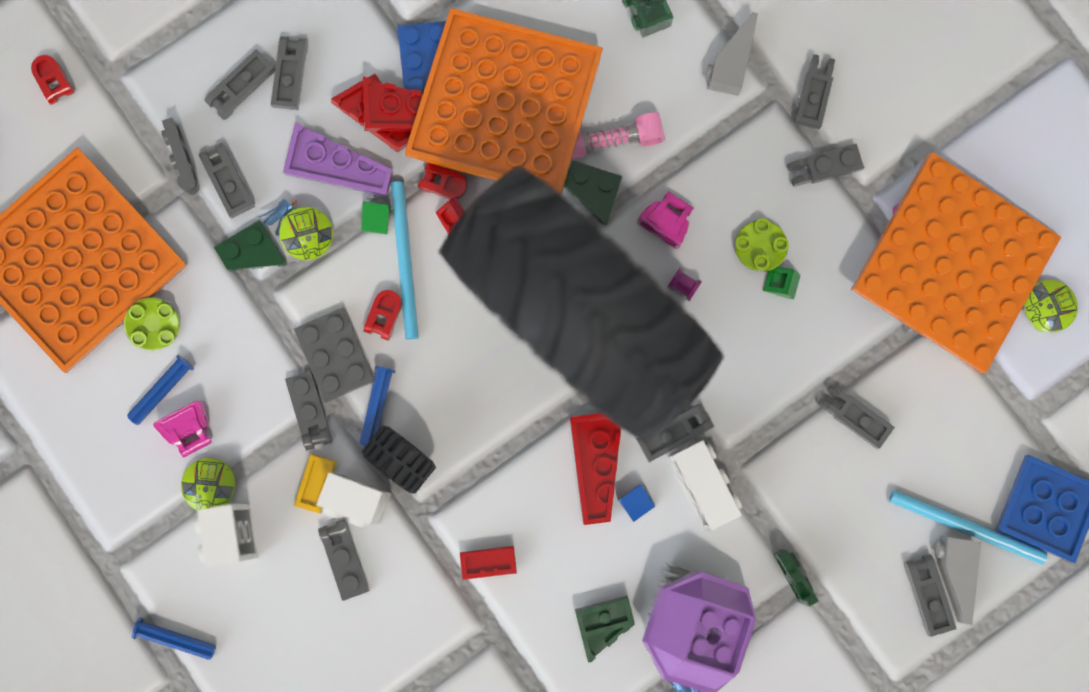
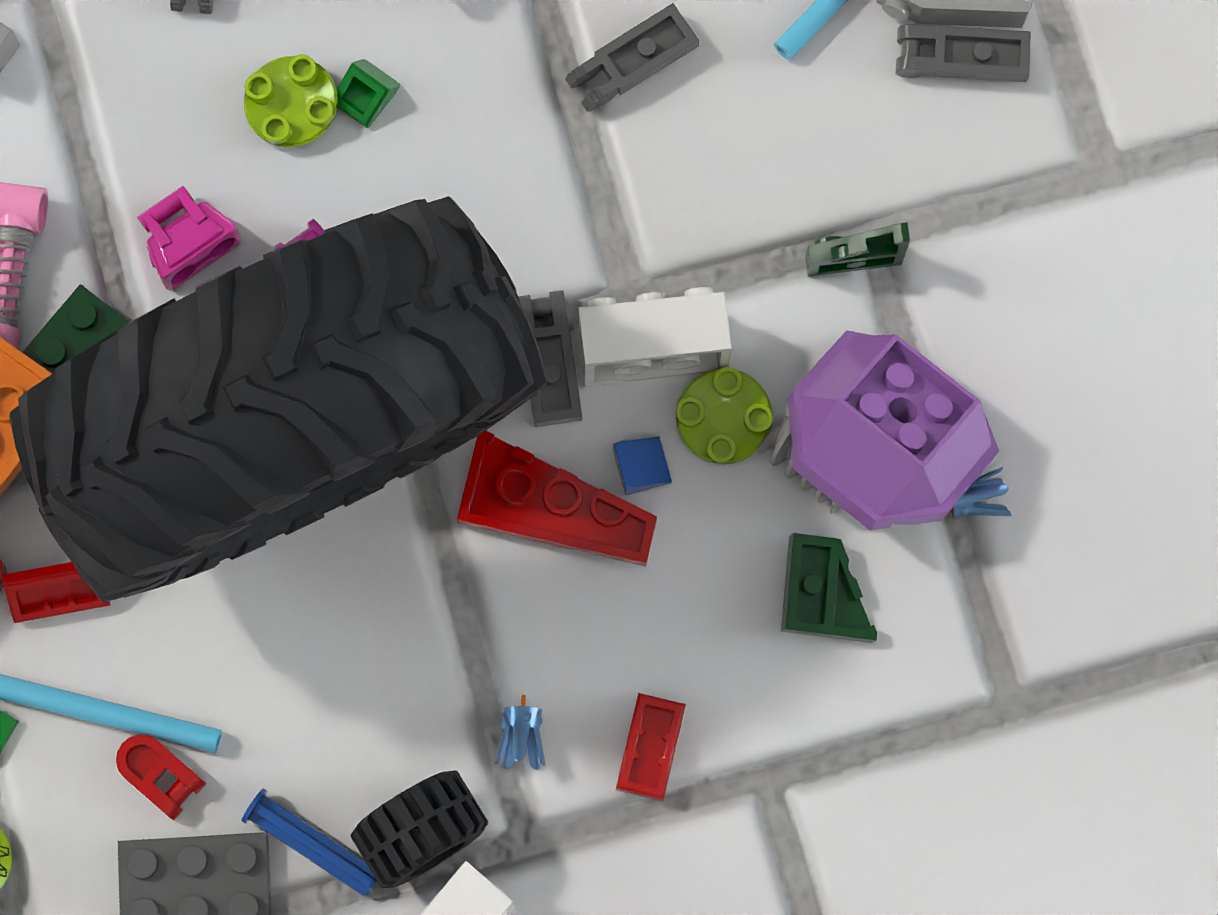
camera: 70 degrees left, 5 degrees down
(471, 491) = (520, 732): none -> flat silver piece
(678, 537) = (724, 416): none -> lime dish

